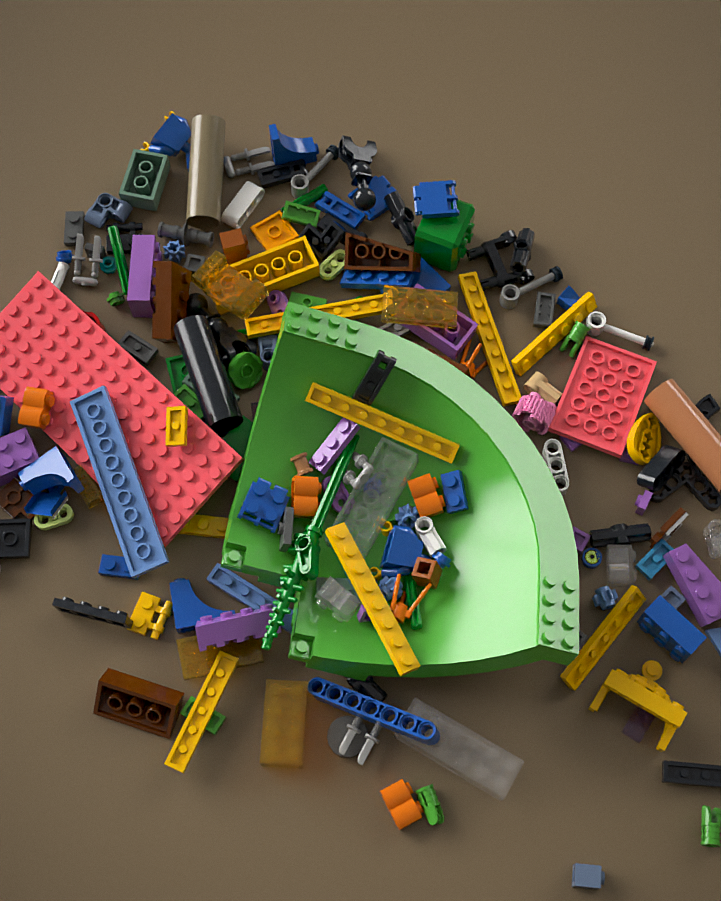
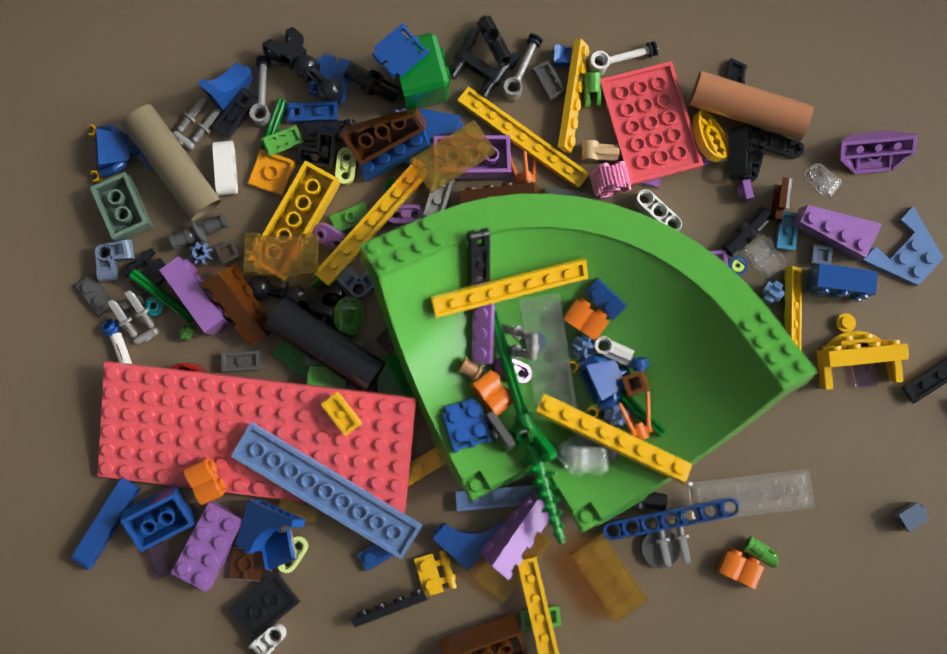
camera: 40 degrees left, 15 degrees up
(234, 245) = (251, 213): dark orange brick -> none

